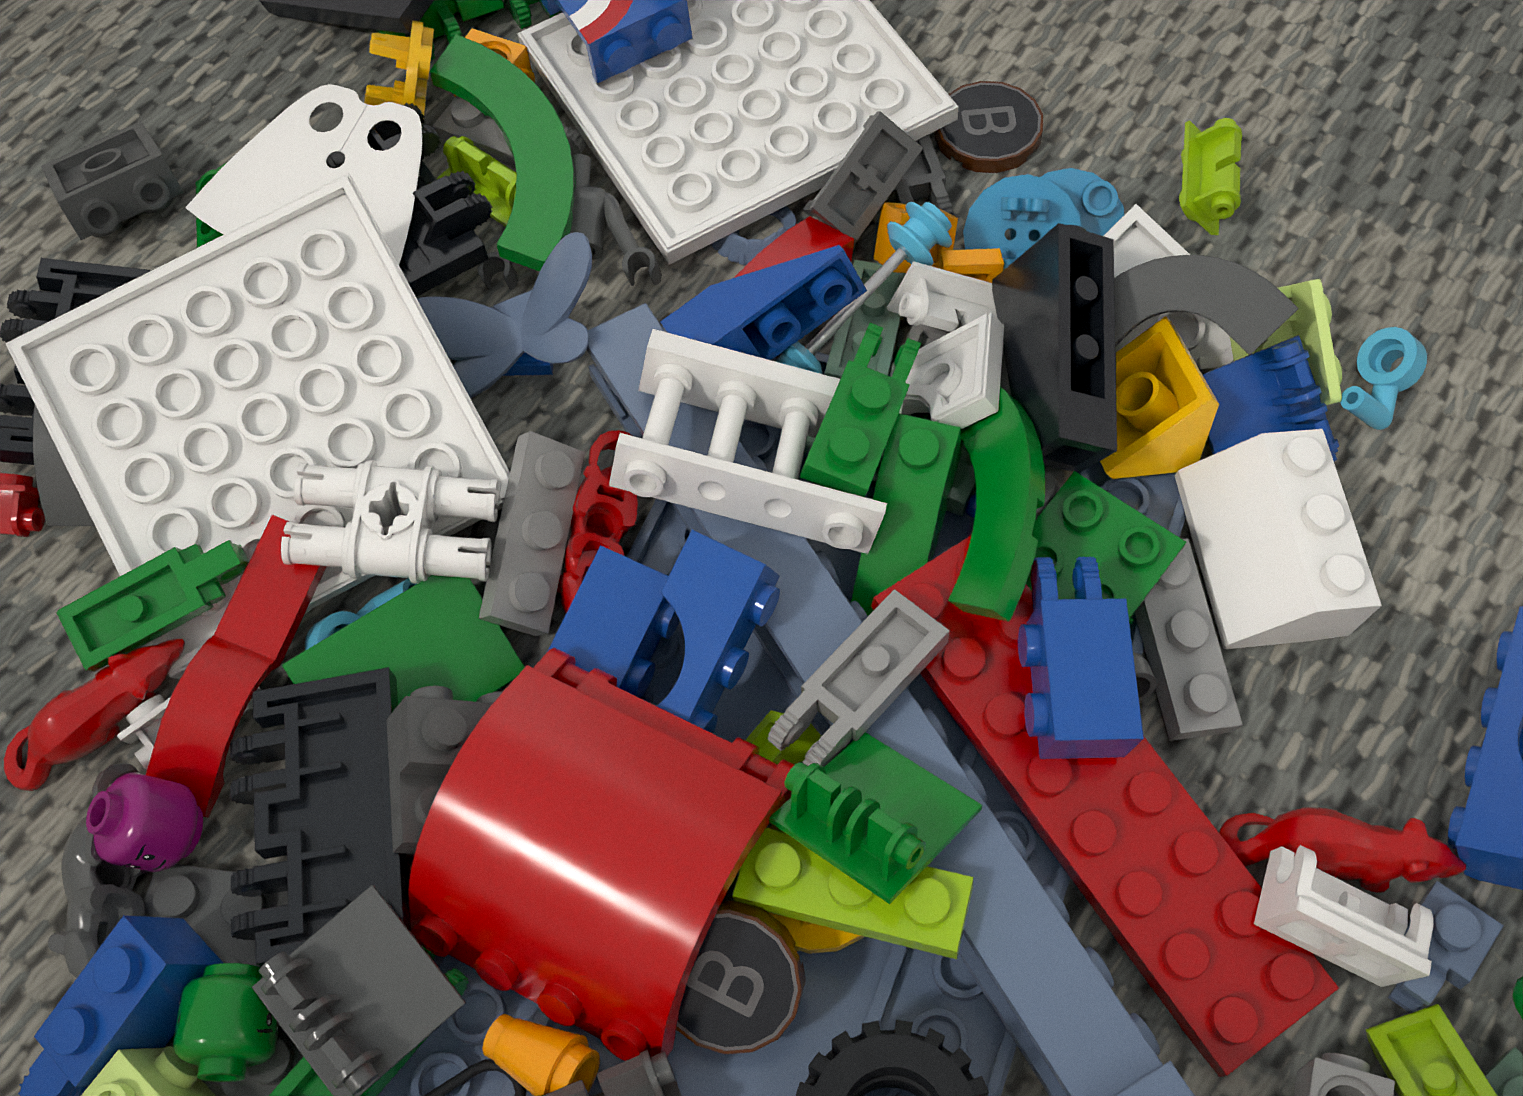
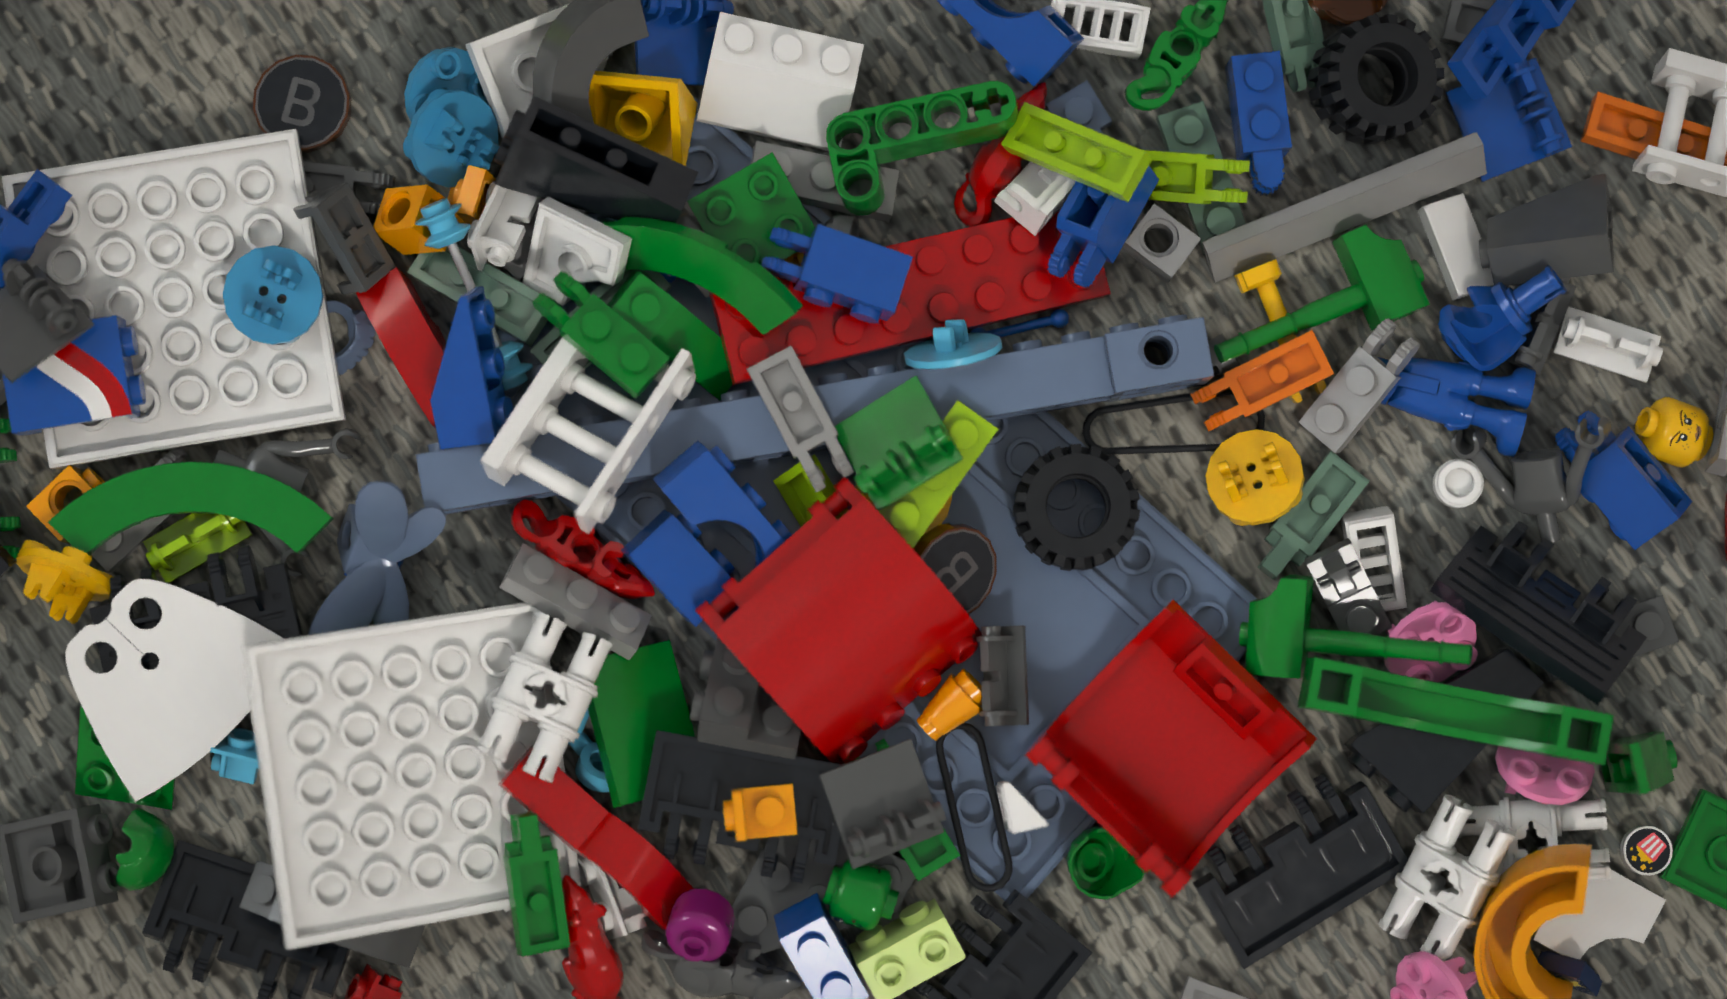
camera: 80 degrees left, 25 degrees up
(136, 232) = (150, 851): none -> green hair
(302, 827) = (761, 812): none -> light orange bracket
(797, 138) = (283, 274): none -> dark azure plate
(1048, 865) = (952, 347): none -> medium azure piece
(1152, 1013) = (1058, 318): none -> blue hinge
(1313, 699) = (922, 139): none -> green beam
(1345, 997) = (1097, 227): none -> blue hinge
(1414, 922) = (1077, 152): none -> lime plate

